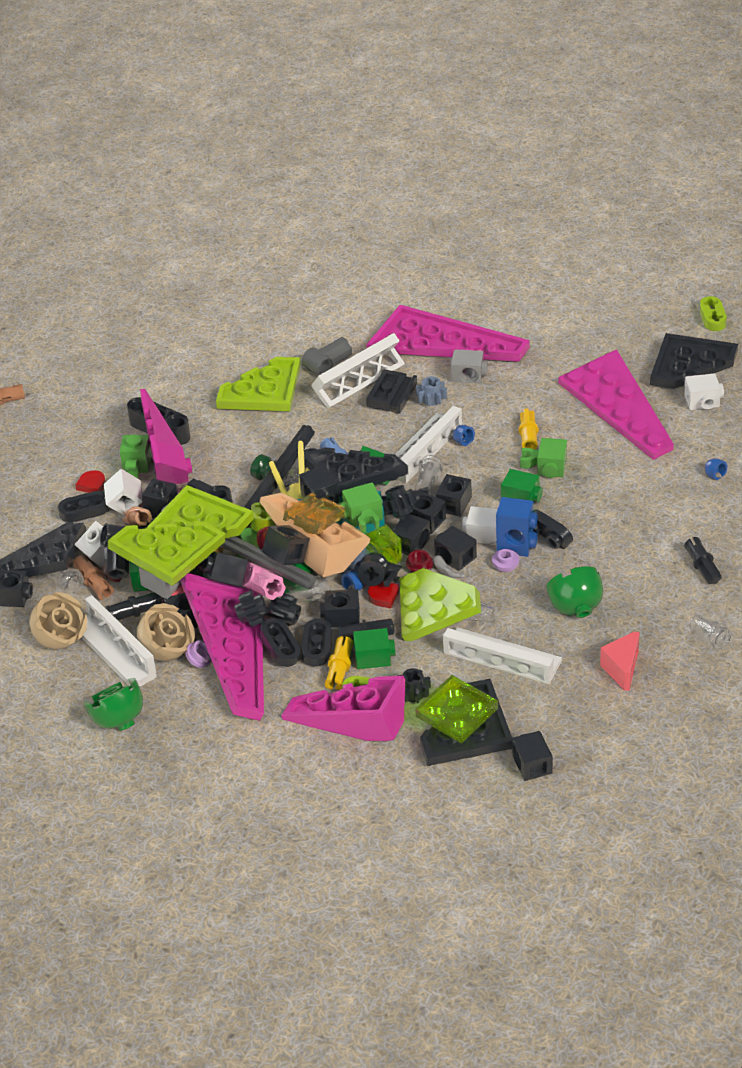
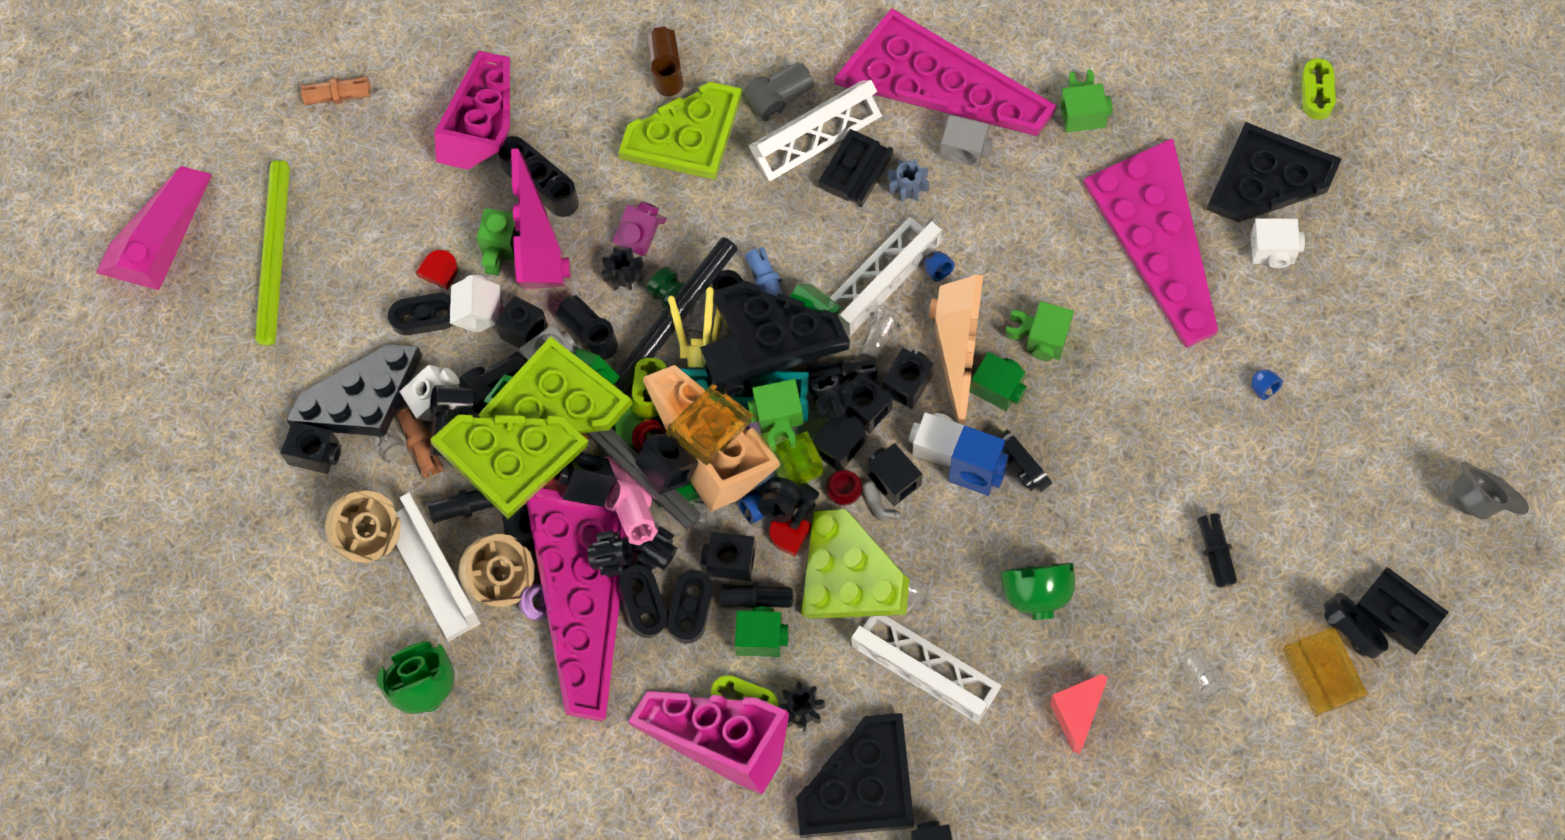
camera: 10 degrees right, 25 degrees up
(105, 395) = (477, 114): none -> dark pink wedge
(137, 516) = (486, 354): nougat axle -> none
(230, 462) = (624, 275): none -> black gear
(238, 440) = (638, 227): none -> magenta bracket
(241, 351) = (665, 61): none -> reddish brown piece
(339, 663) = (713, 648): yellow pin -> none
(456, 708) = (848, 768): clear neon green plate -> none
(484, 462) = (955, 331): none -> light nougat wedge
(505, 560) = (954, 511): lavender plate -> none
(528, 429) = (1027, 269): yellow axle -> none
(549, 338) = (1084, 104): none -> bright green brick

